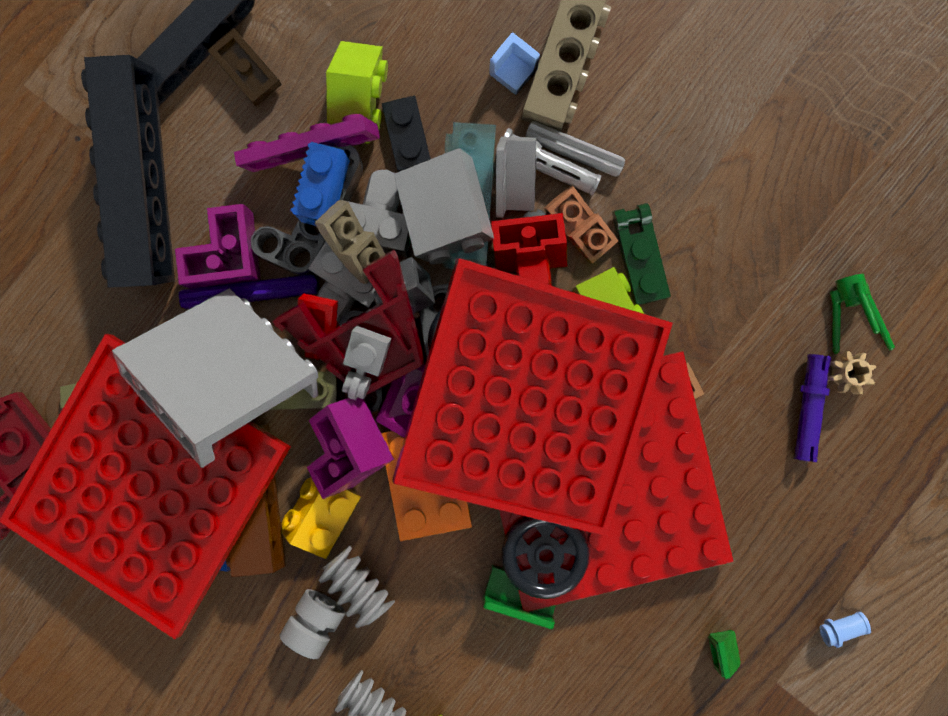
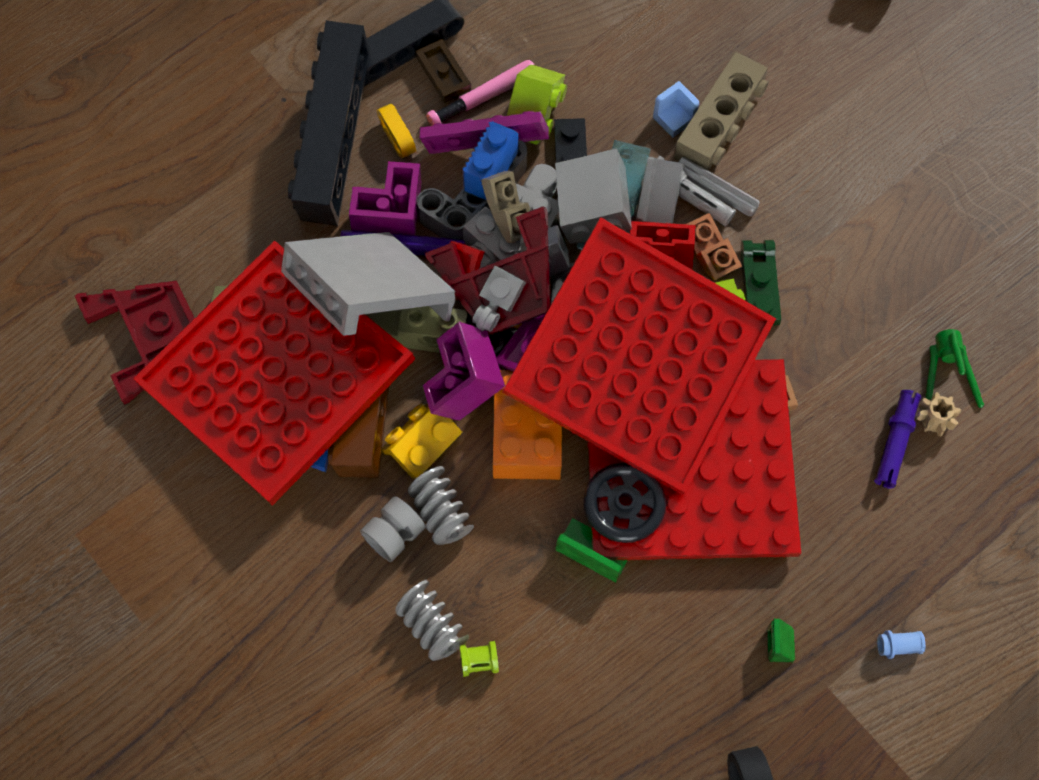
camera: 10 degrees right, 20 degrees down
(209, 156) = (396, 130): none -> yellow beam
(294, 87) = (479, 95): none -> bright pink piece

